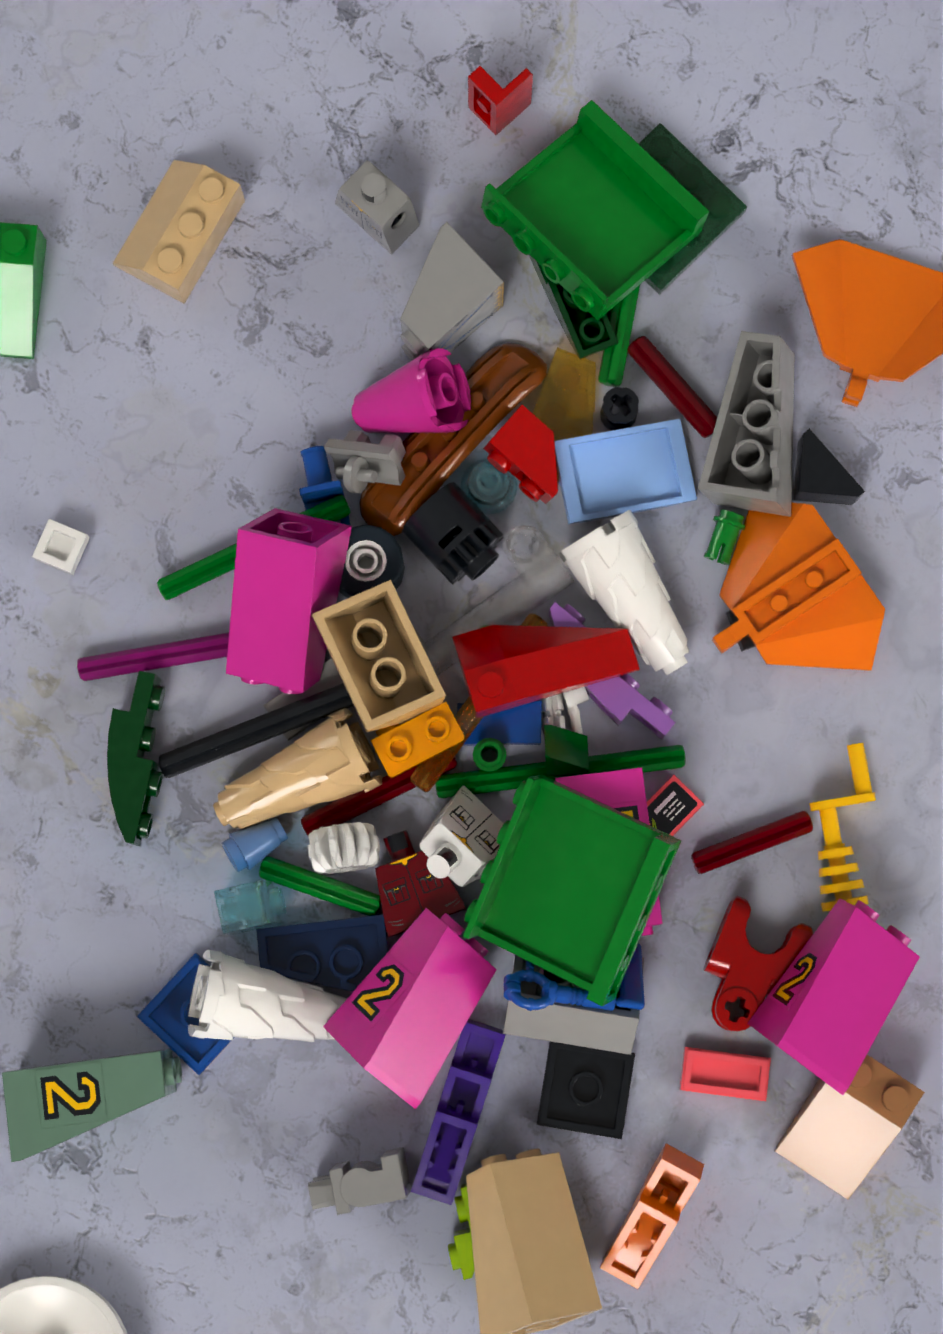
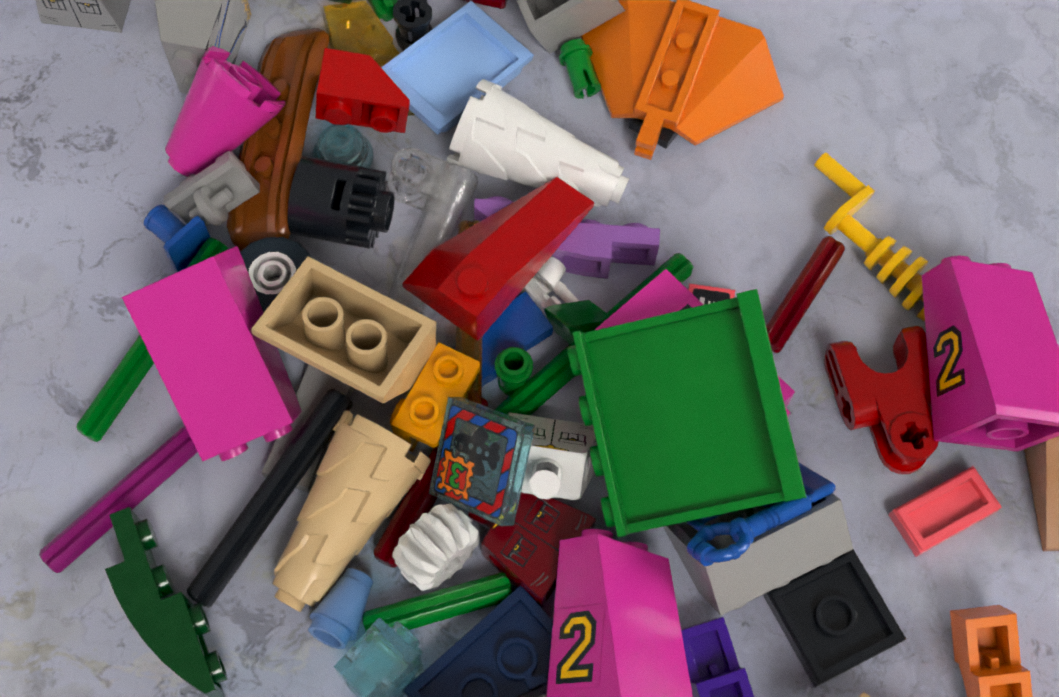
camera: 40 degrees left, 15 degrees down
(412, 813) = (481, 460): none -> tile

